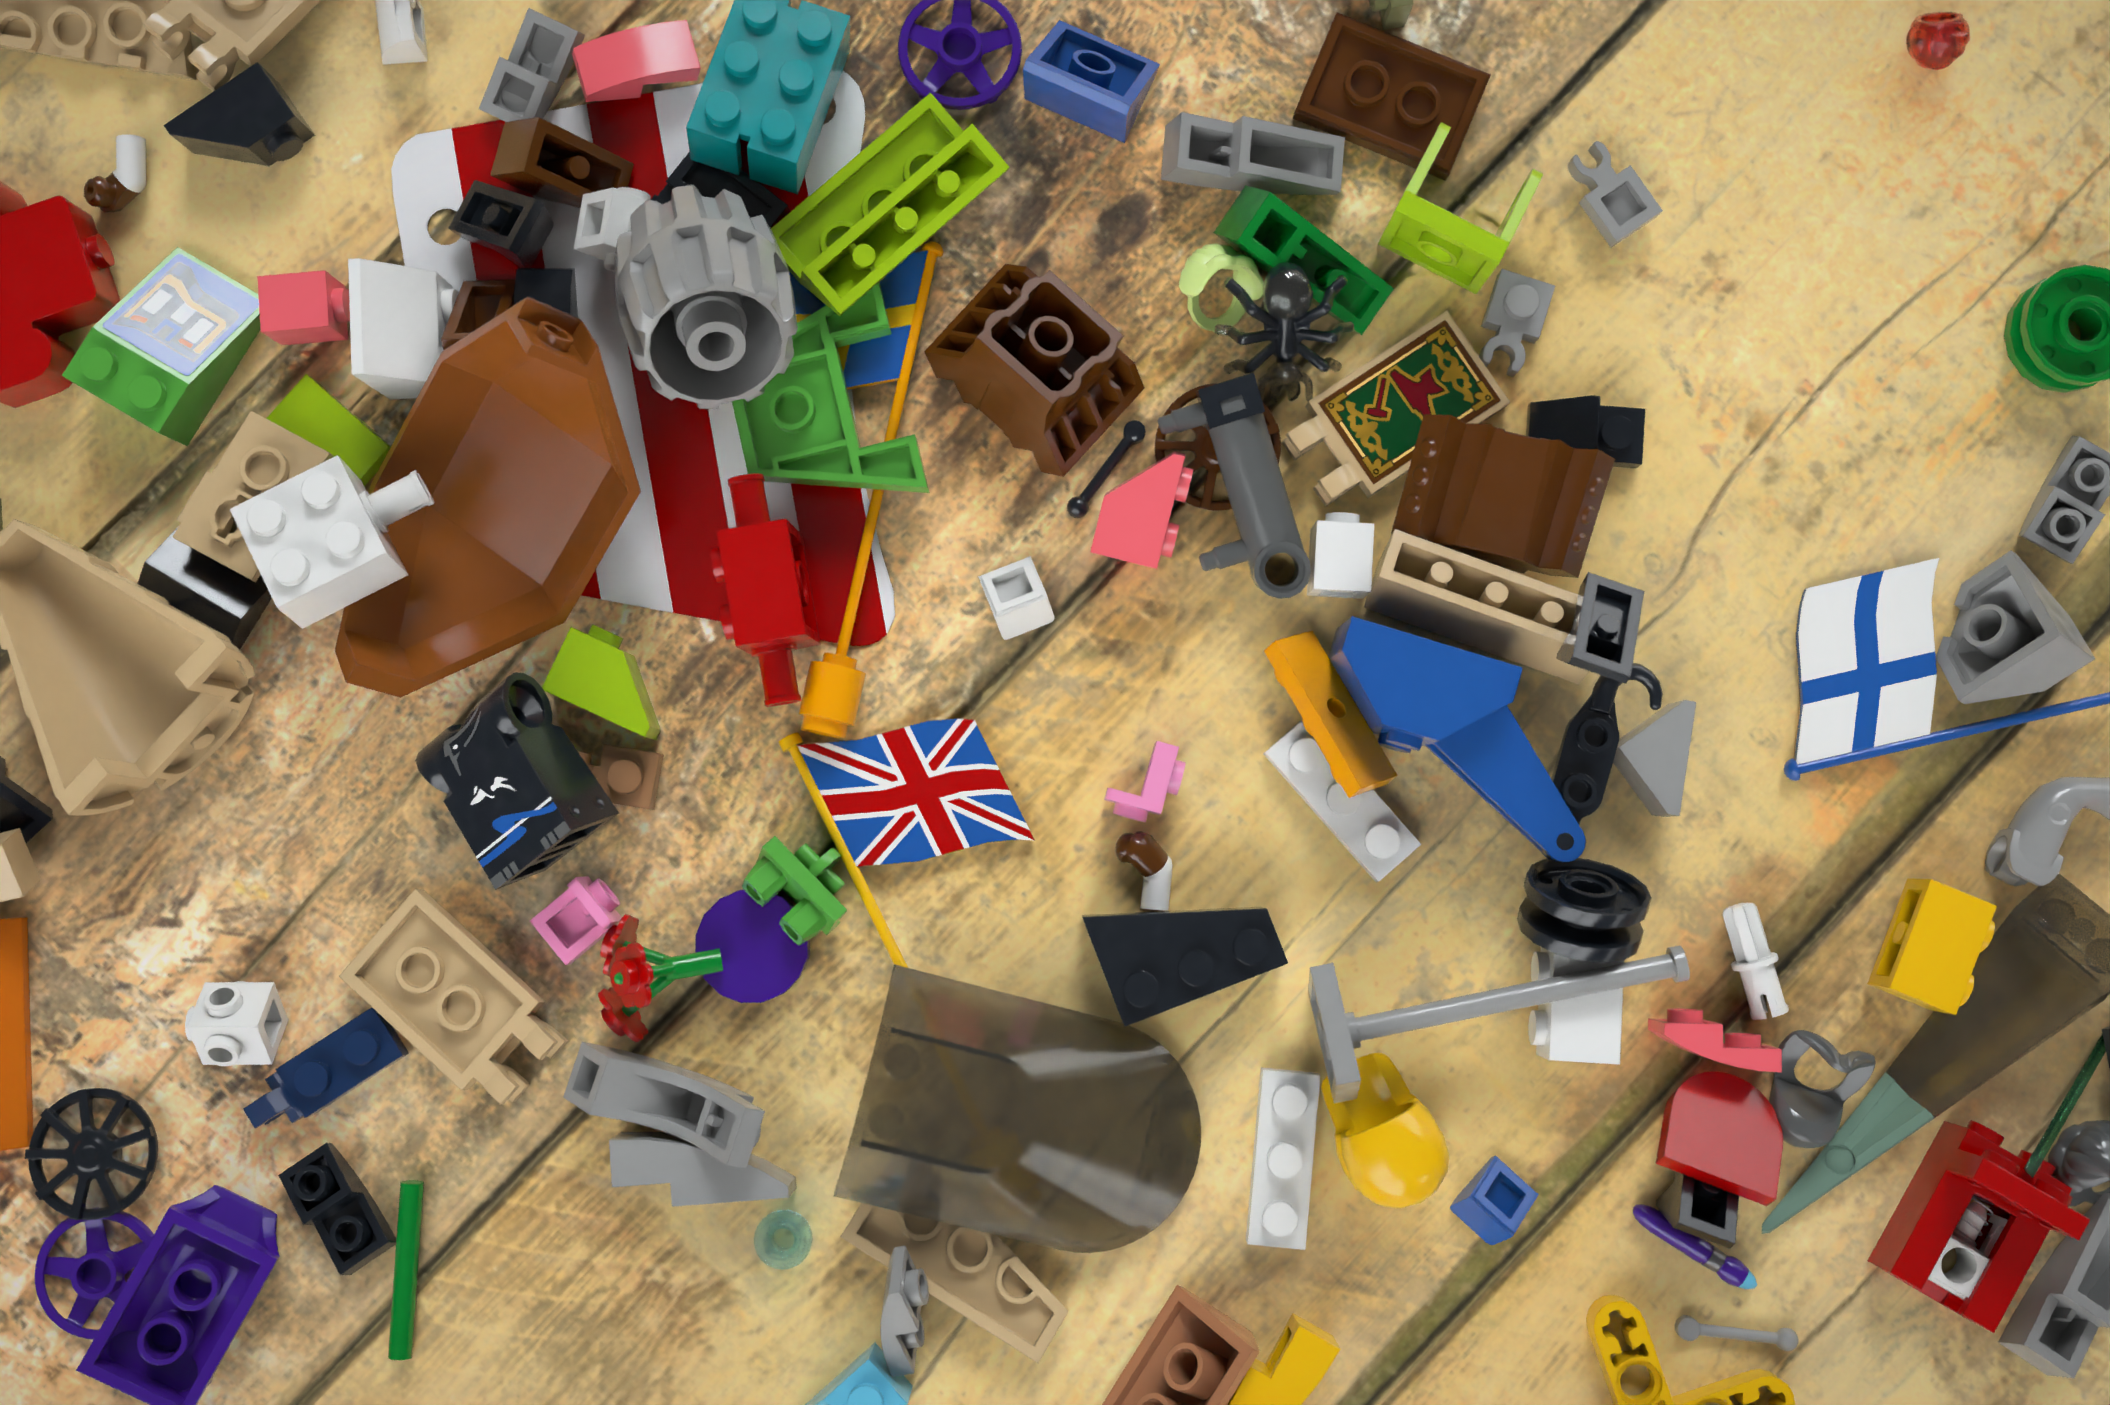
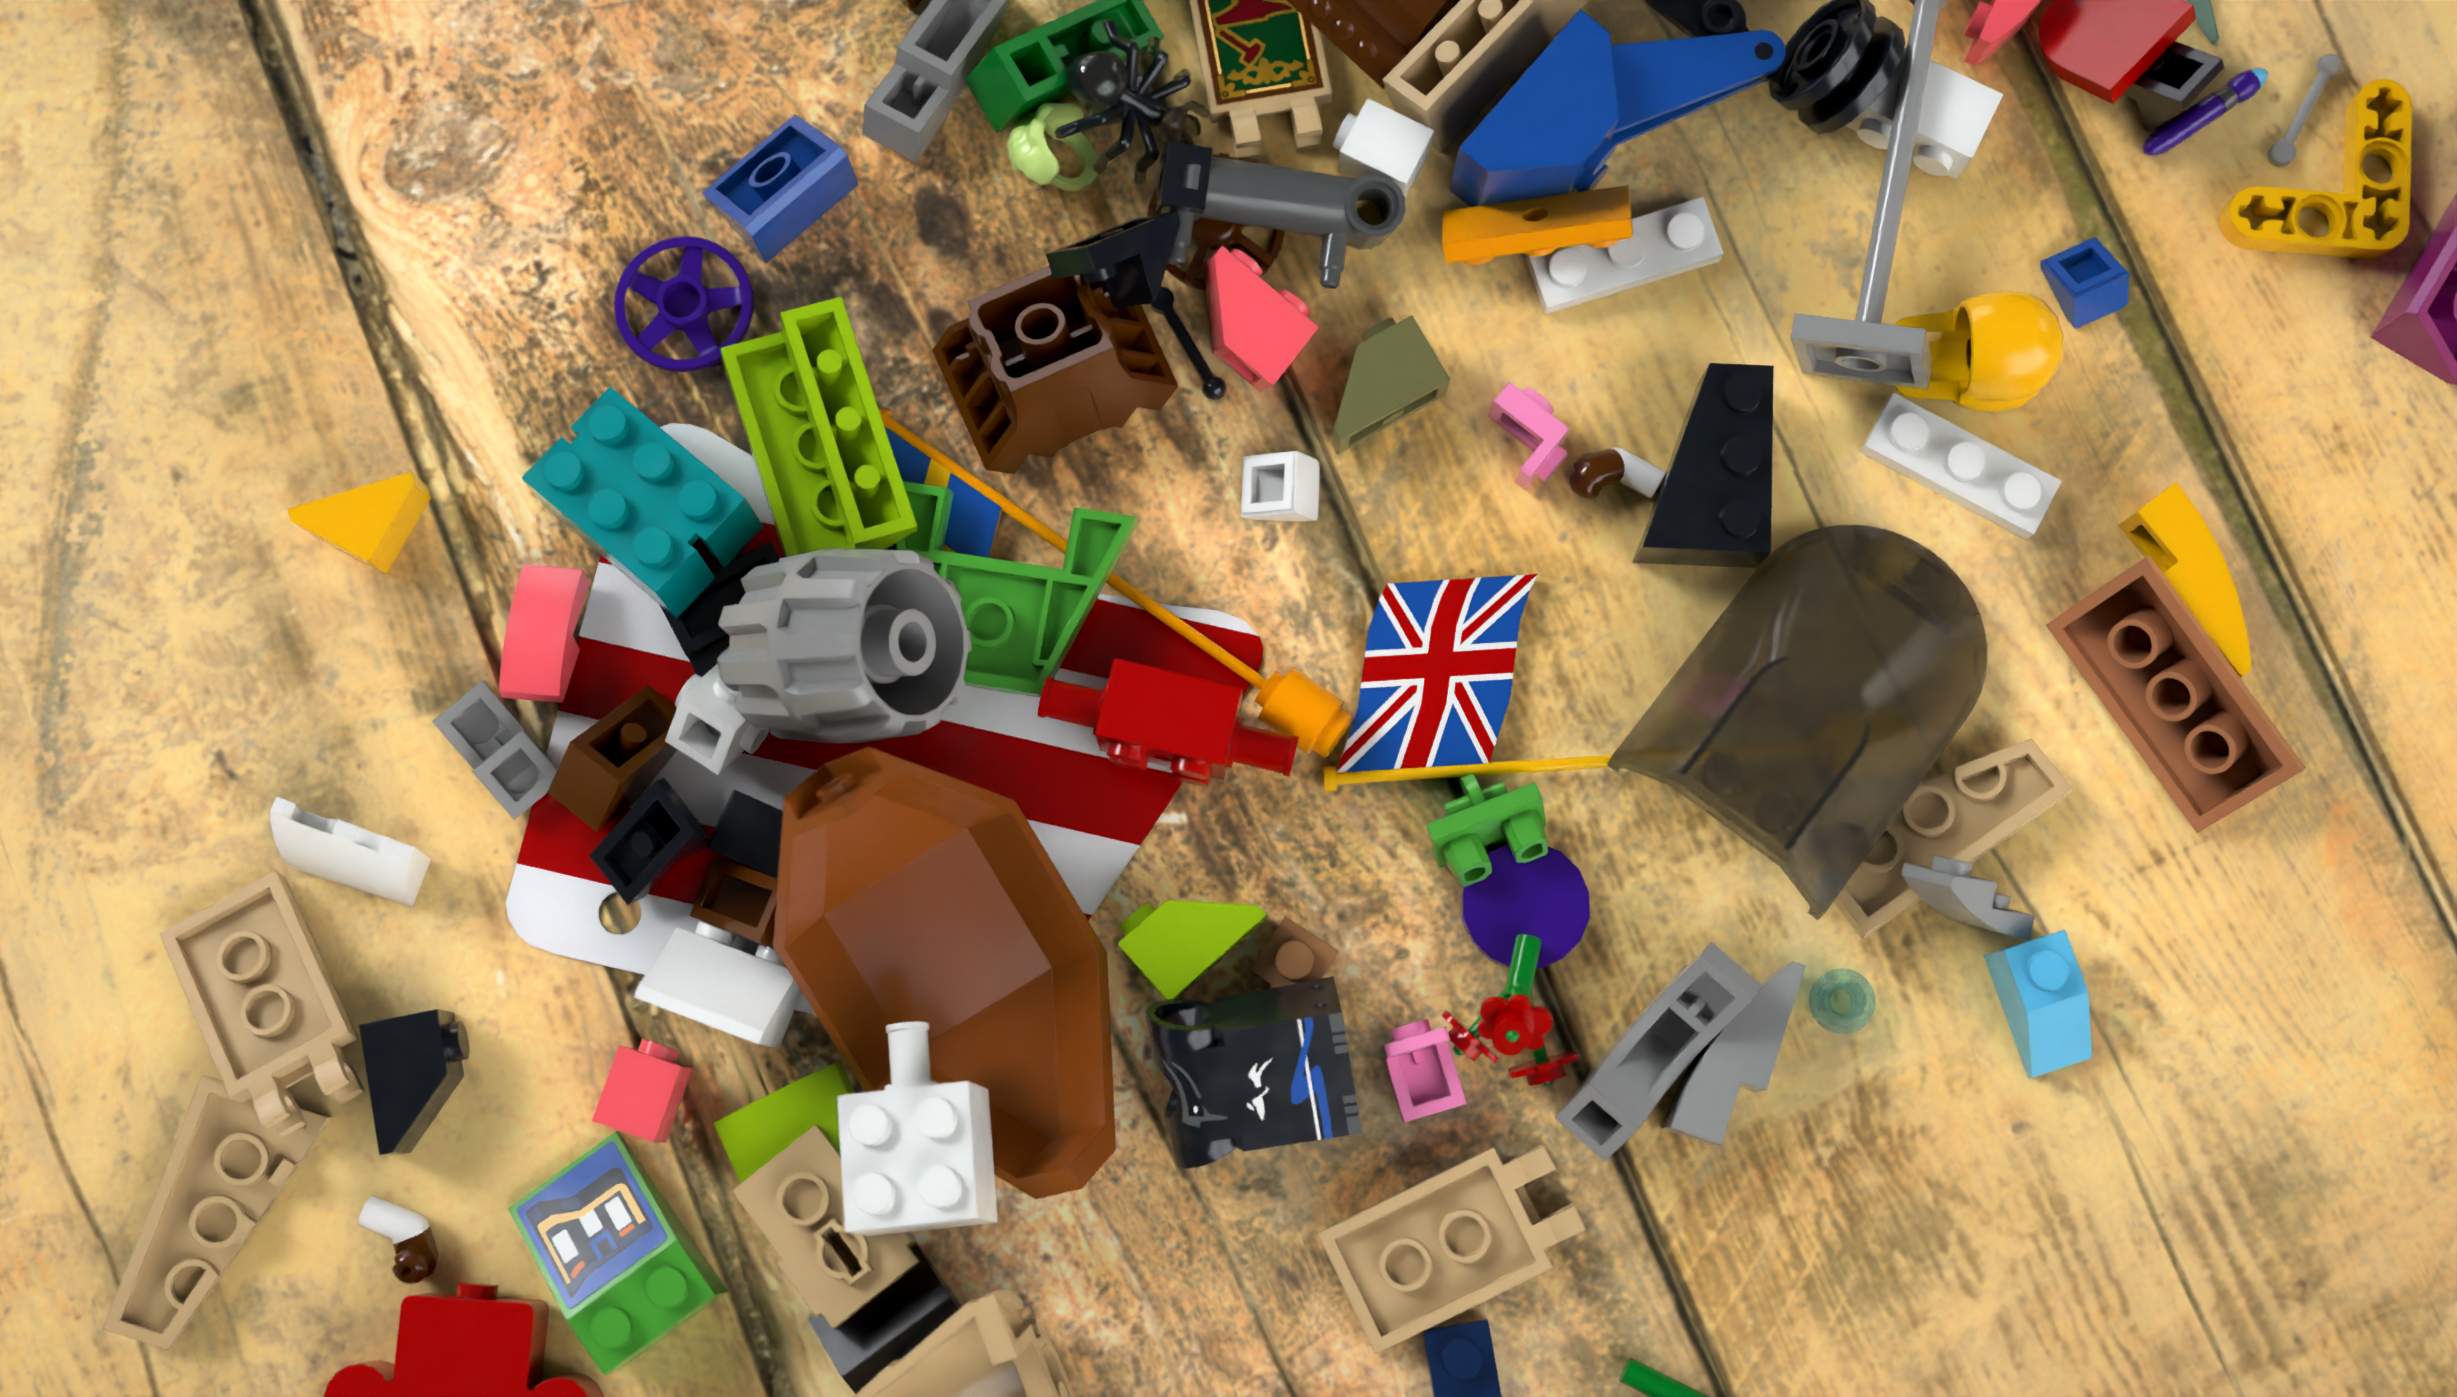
camera: 70 degrees left, 5 degrees down
(1140, 644) = (1388, 381): none -> olive slope
(1143, 380) = (1126, 257): none -> black slope

